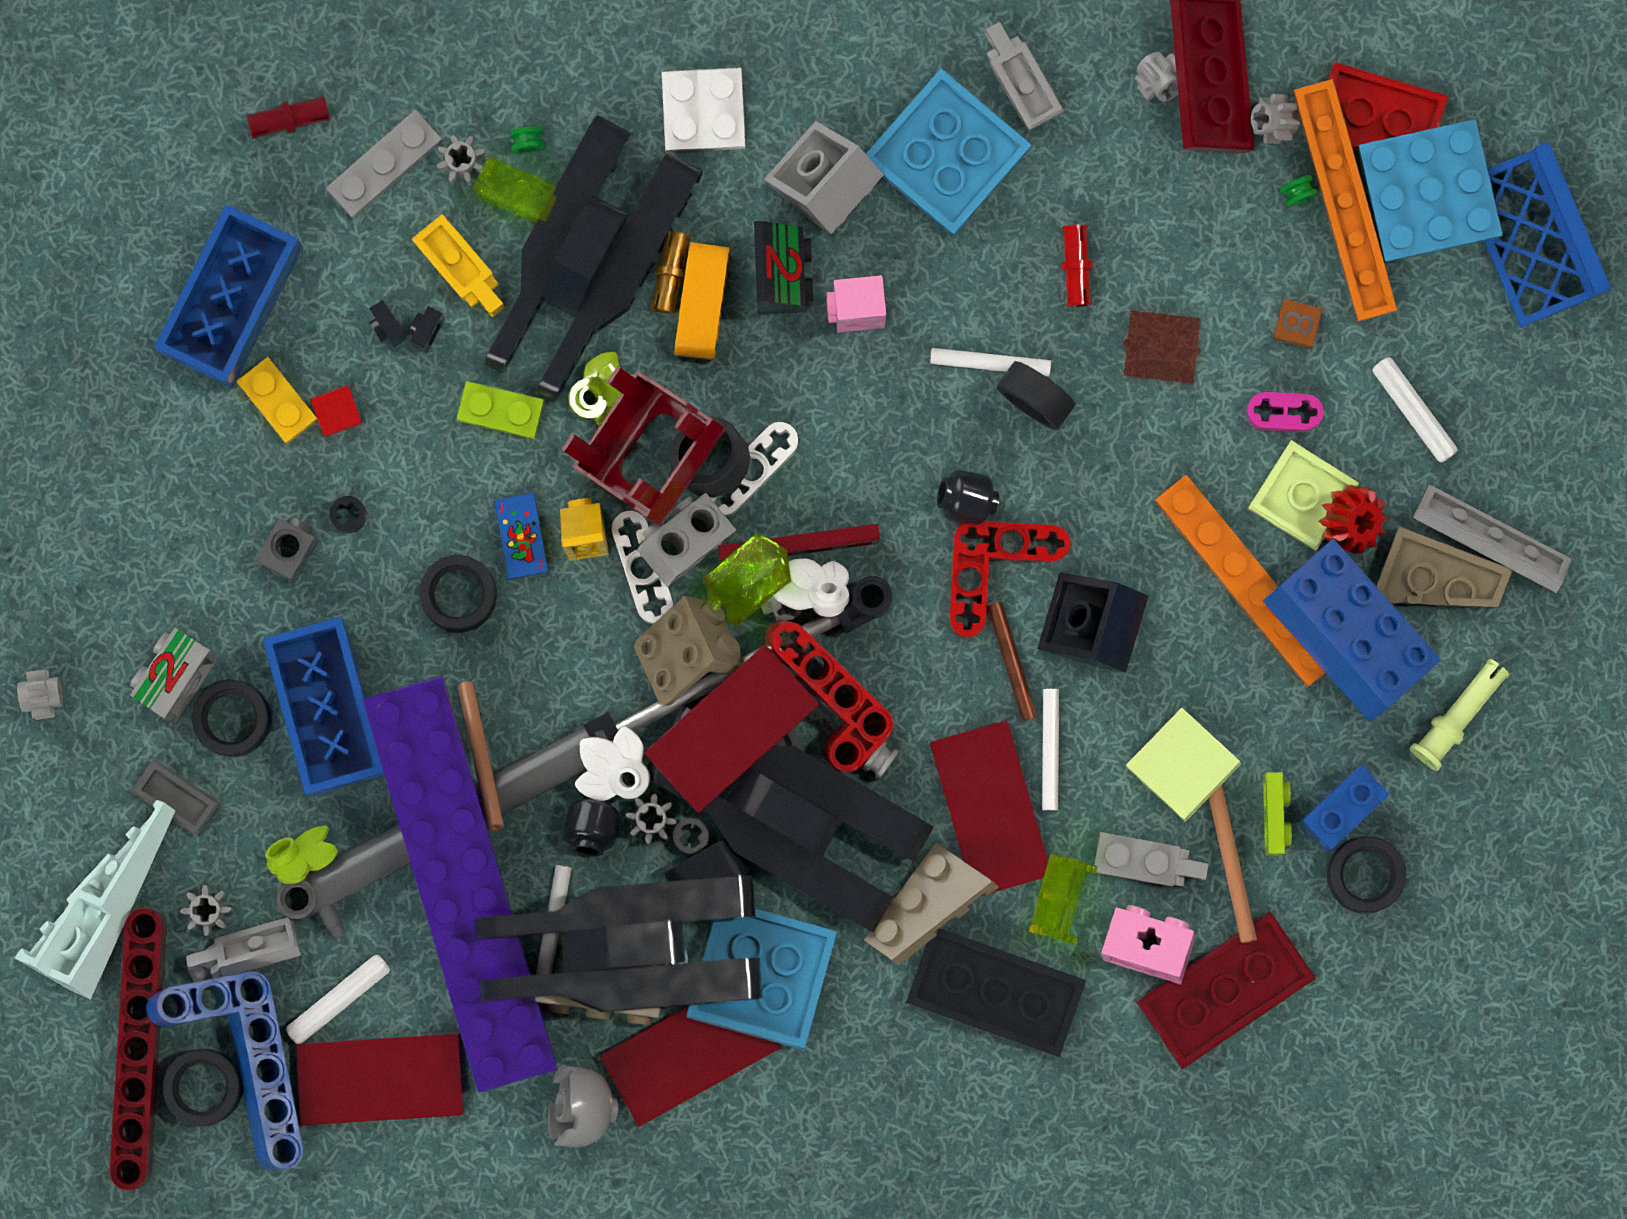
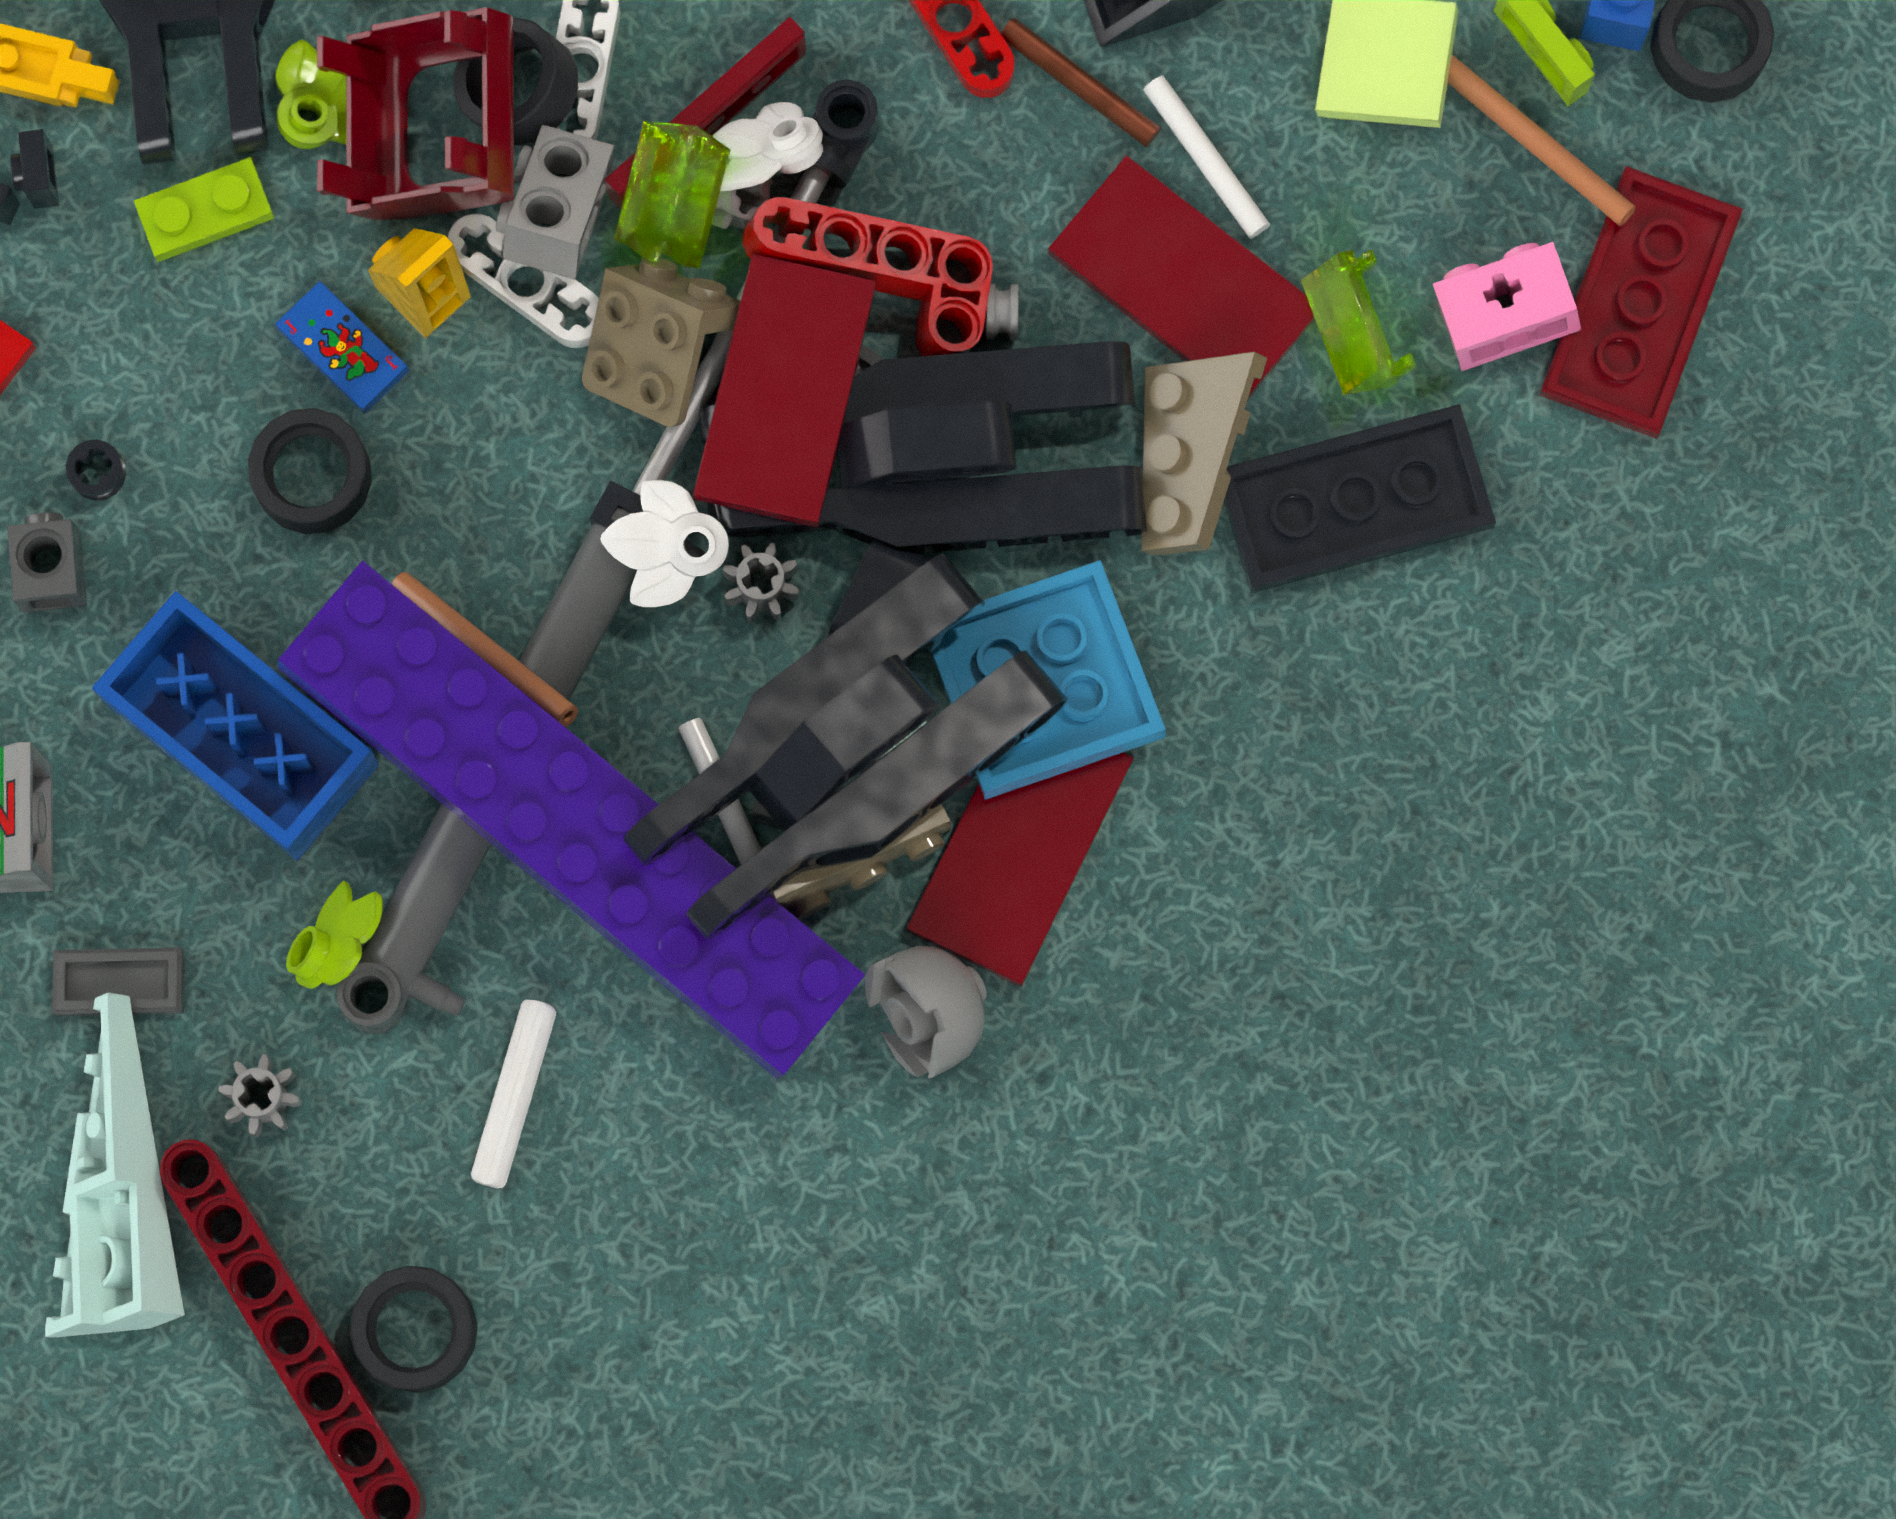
camera: 35 degrees left, 5 degrees down
(213, 693) = (101, 784): black tyre -> none
(246, 950) = (348, 1113): light grey hinge -> none
(248, 1055) = (444, 1240): blue beam -> none
(379, 1079) = (641, 1158): dark red tile -> none
(591, 826) = (689, 644): black head -> none
(678, 834) = (808, 578): dark grey bush -> none
(1146, 861) = (1427, 210): light grey hinge -> none

